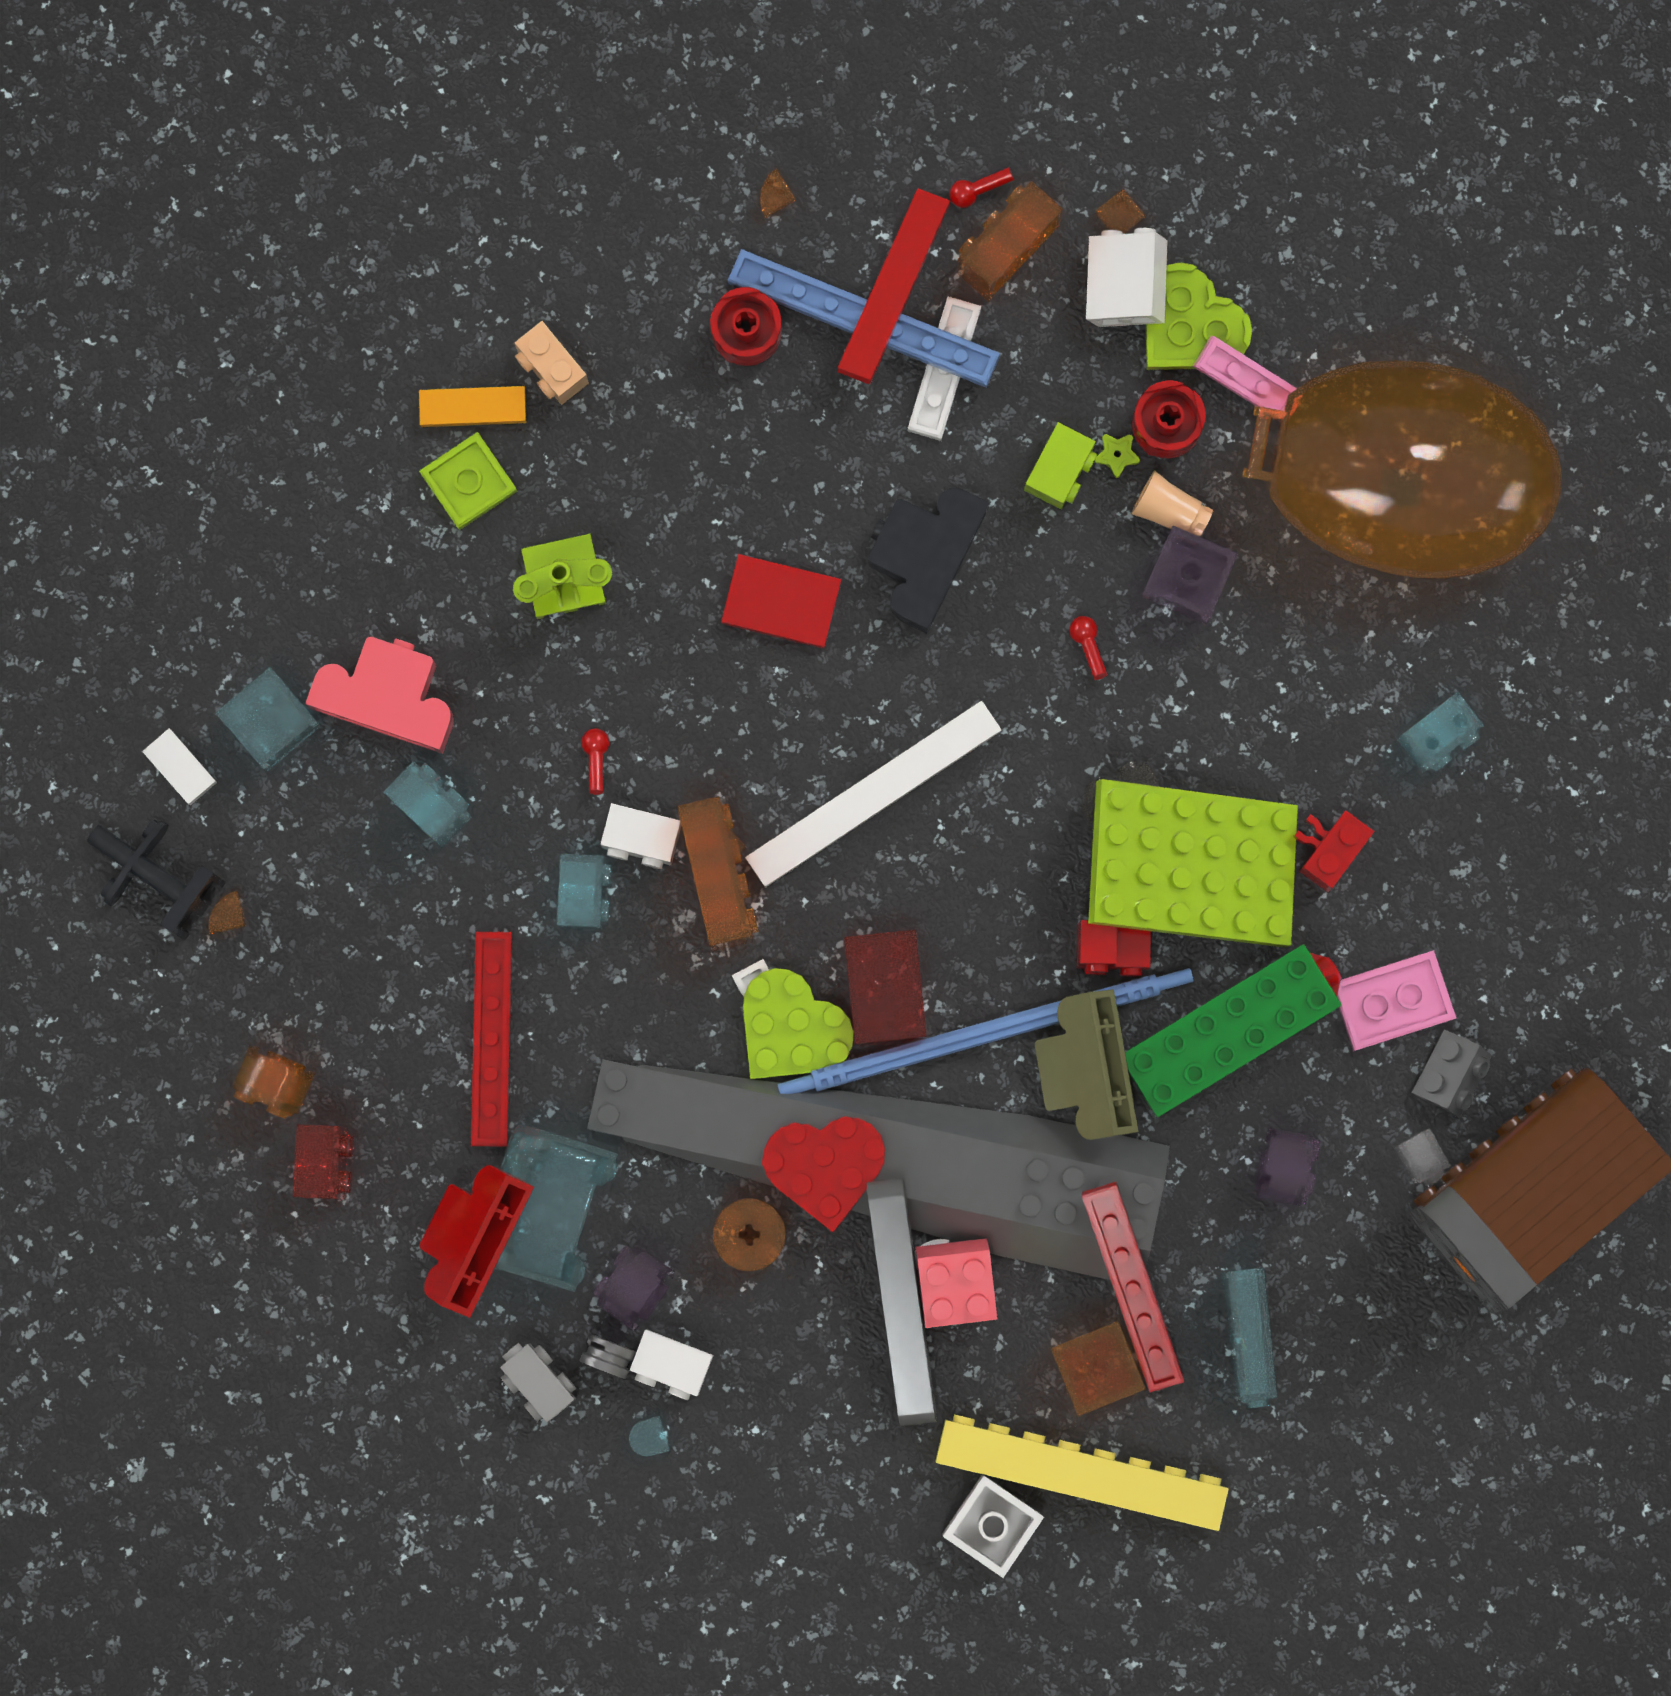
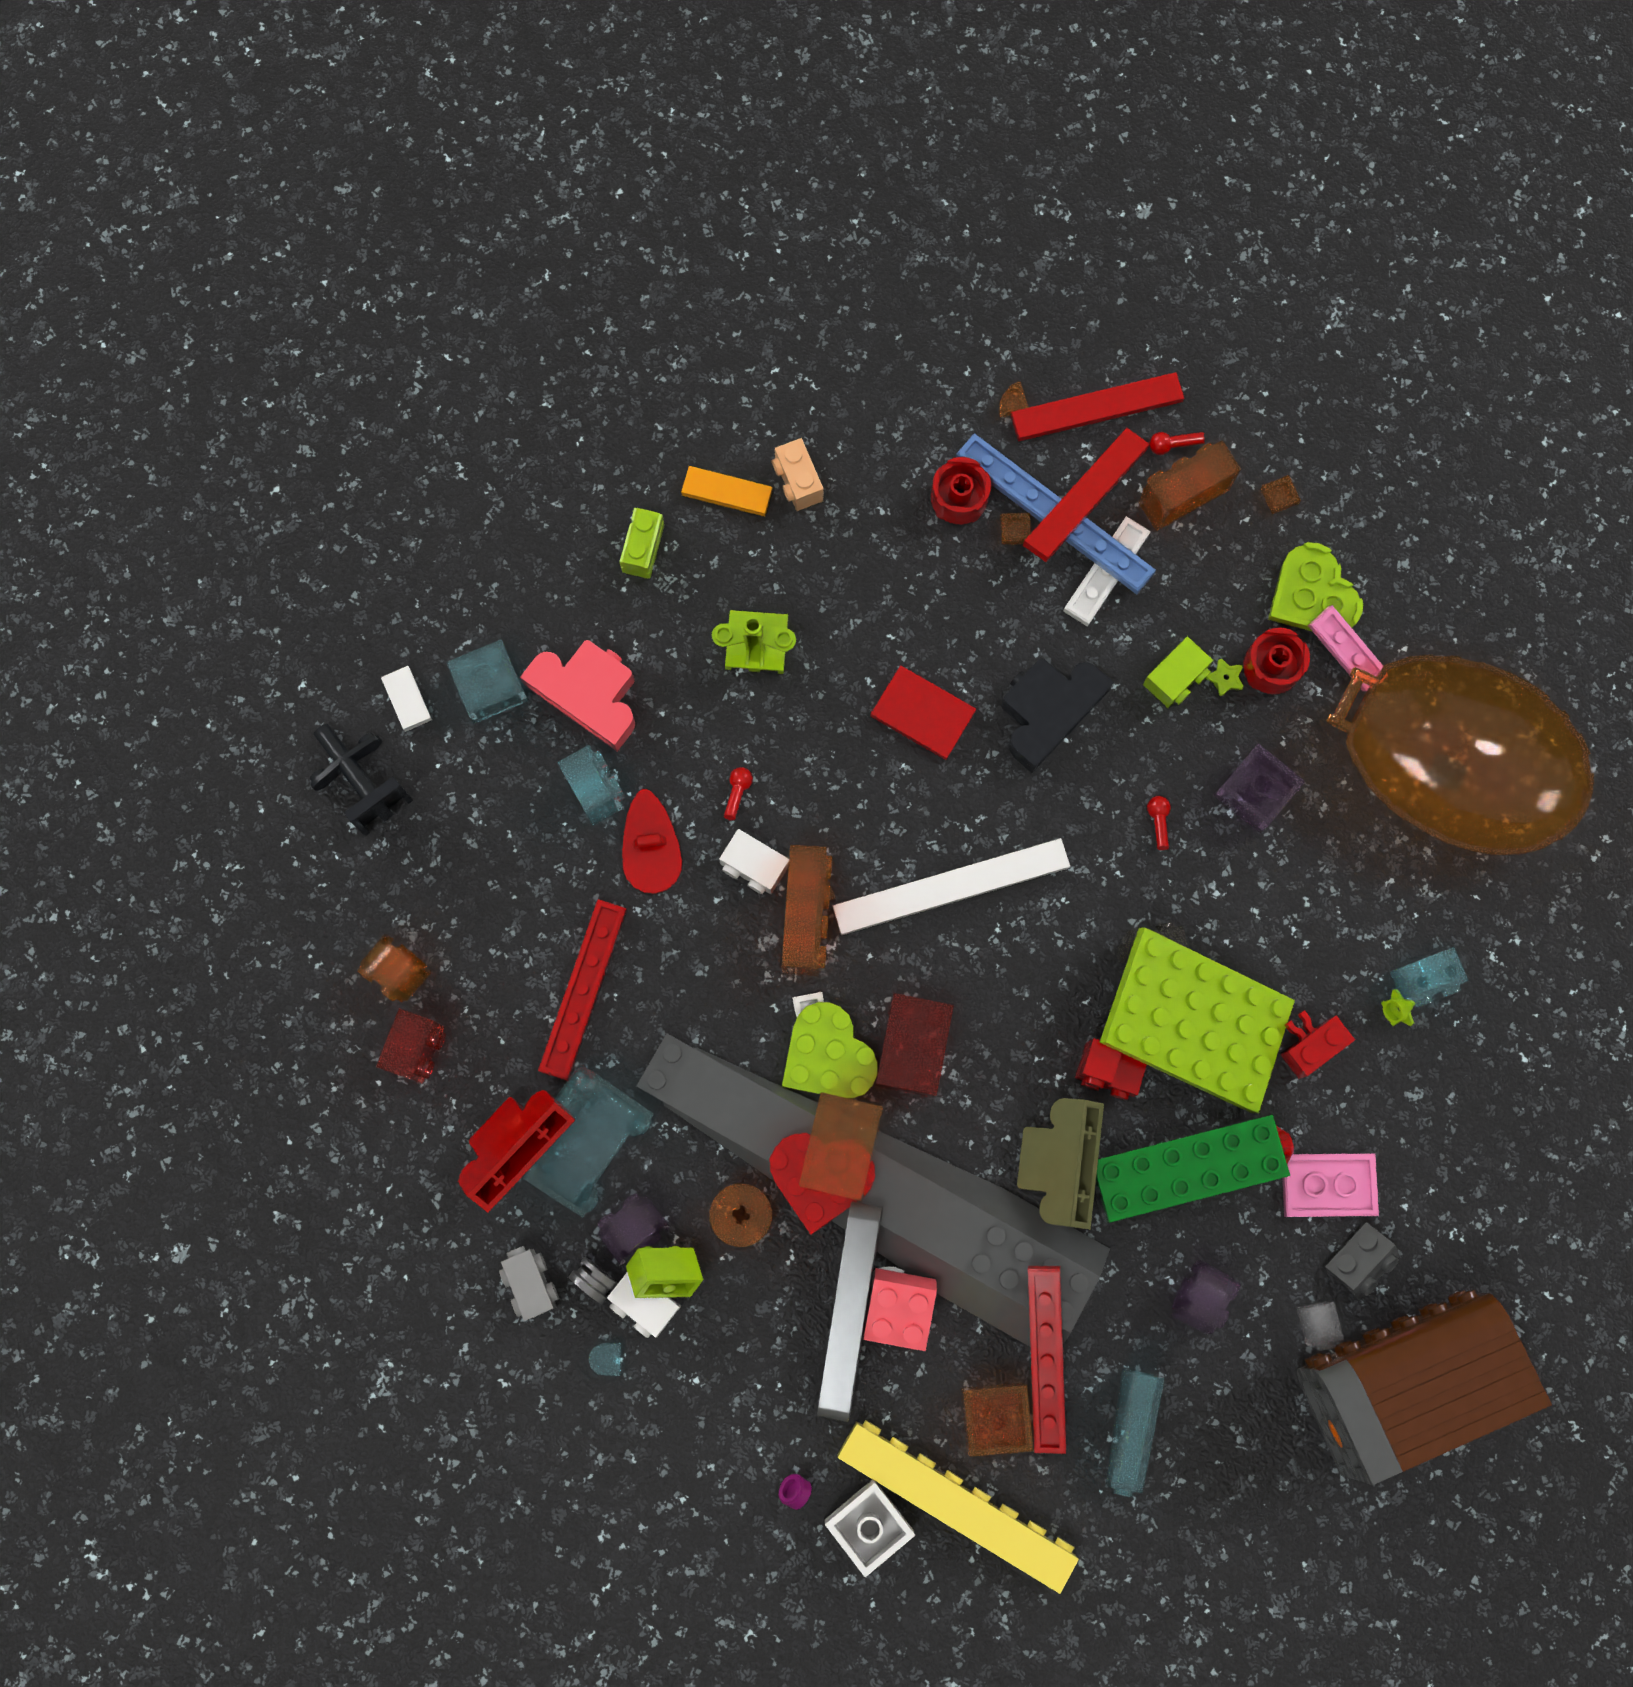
camera: 15 degrees right, 5 degrees down
(227, 914) = (404, 825): clear orange tile -> none
(394, 501) = (642, 543): none -> lime brick
(468, 481) = (705, 546): lime tile -> none
(515, 851) = (650, 846): none -> red shield
(581, 892) = (693, 893): clear light blue brick -> none
(684, 1323) = (664, 1272): none -> lime brick
(822, 349) = (1014, 527): none -> clear orange tile
(837, 1126) = (841, 1147): none -> clear orange brick
(876, 172) = (1097, 406): none -> red tile
(900, 1514) = (795, 1491): none -> magenta tile
(969, 1037) = (993, 1107): medium blue axle -> none
(1126, 278) = (1273, 542): white brick -> none
(1171, 506) = (1256, 727): light nougat plant -> none
(1415, 780) = (1391, 1011): none -> lime plate

